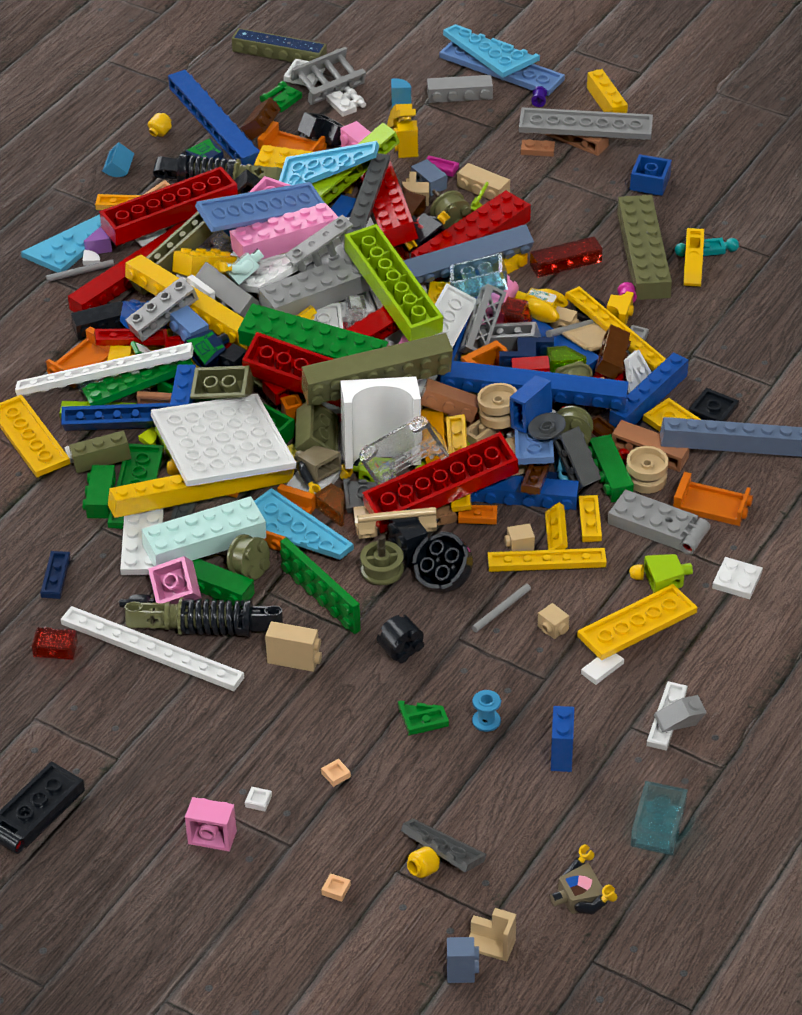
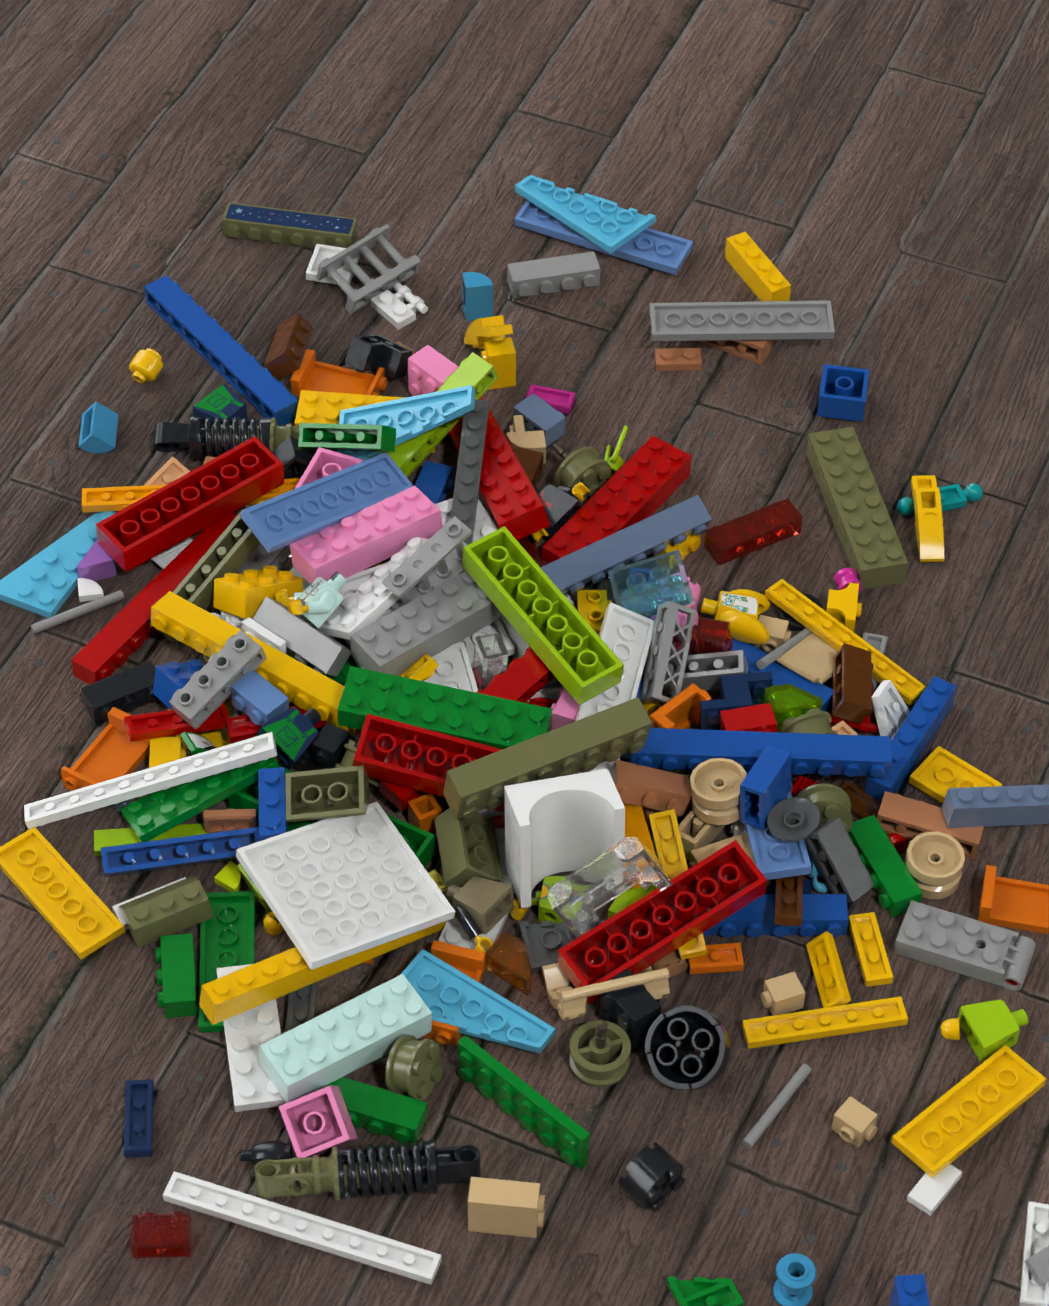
camera: 10 degrees left, 5 degrees up
(286, 98) = (313, 308): green plate -> none
(286, 170) = (347, 437): none -> green brick
(474, 178) = (608, 420): tan brick -> none
(539, 95) = (664, 278): dark purple bush -> none
(713, 406) = (1001, 753): black plate -> none

